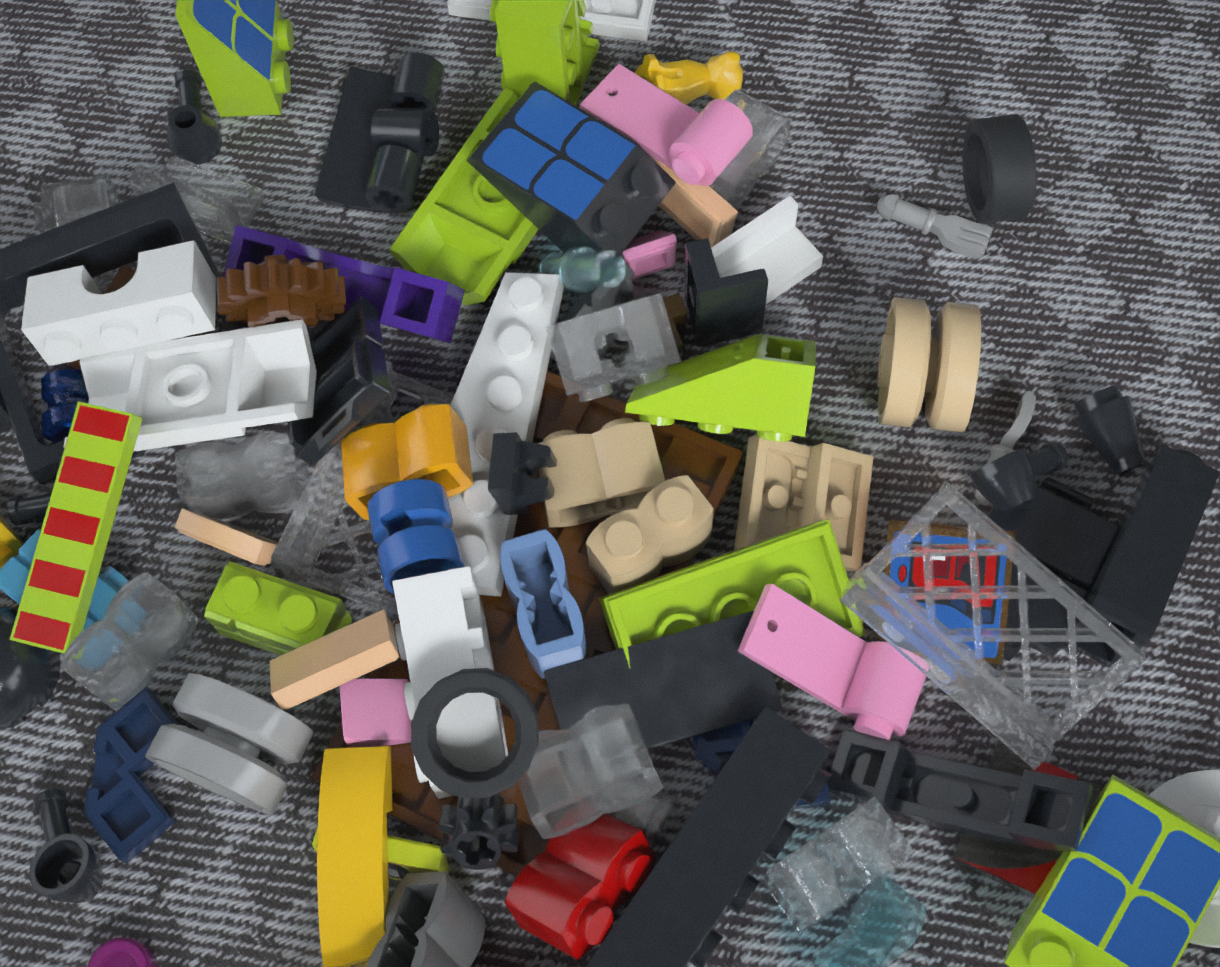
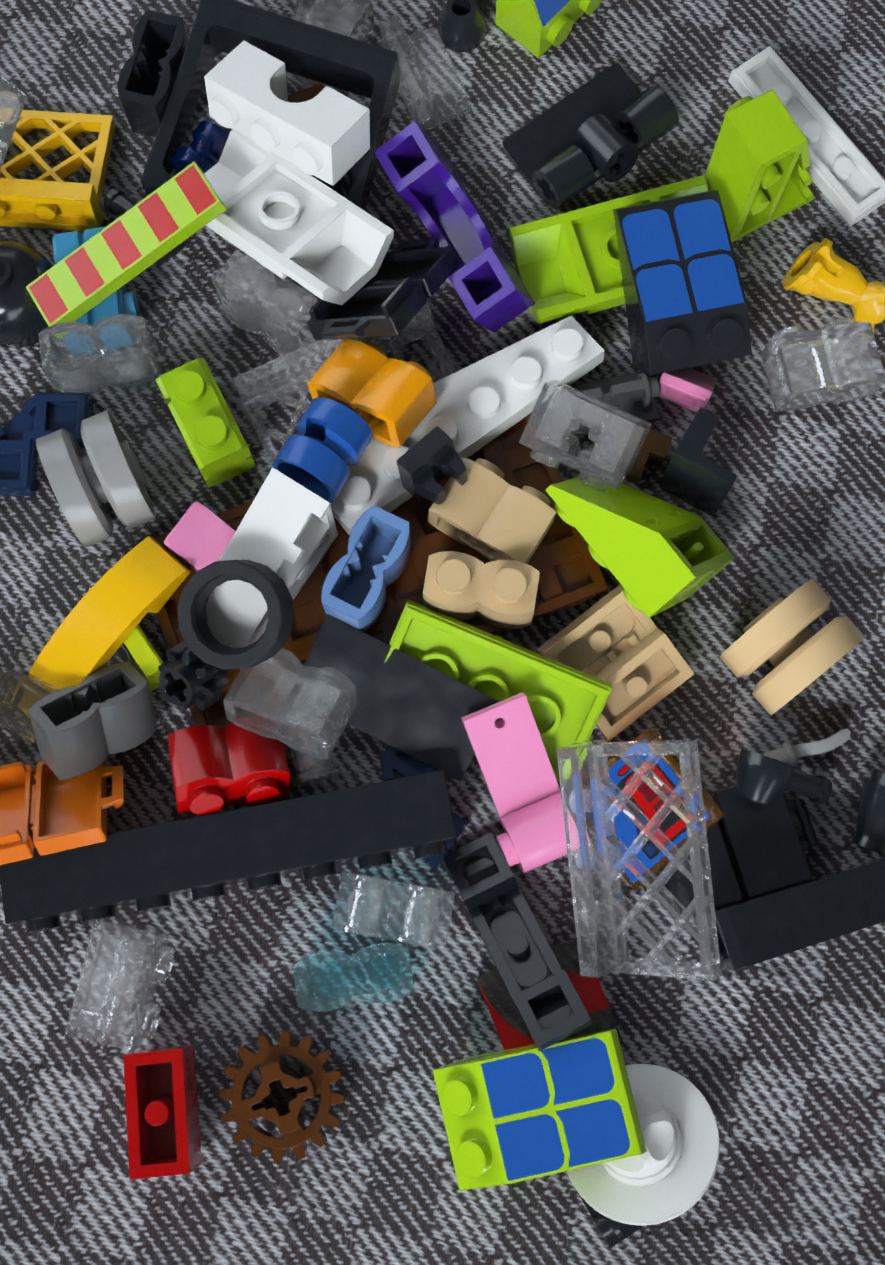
camera: 40 degrees right, 10 degrees up
(226, 537) = (222, 339): light nougat tile -> none
(280, 292) = (396, 198): reddish brown gear -> none
(333, 660) = (201, 483): light nougat tile -> none
(585, 269) = (623, 361): clear light blue pin -> none
(686, 141) = (784, 307): bright pink door -> none
(698, 209) = (754, 379): light nougat tile -> none
(770, 244) = (767, 463): white panel -> none

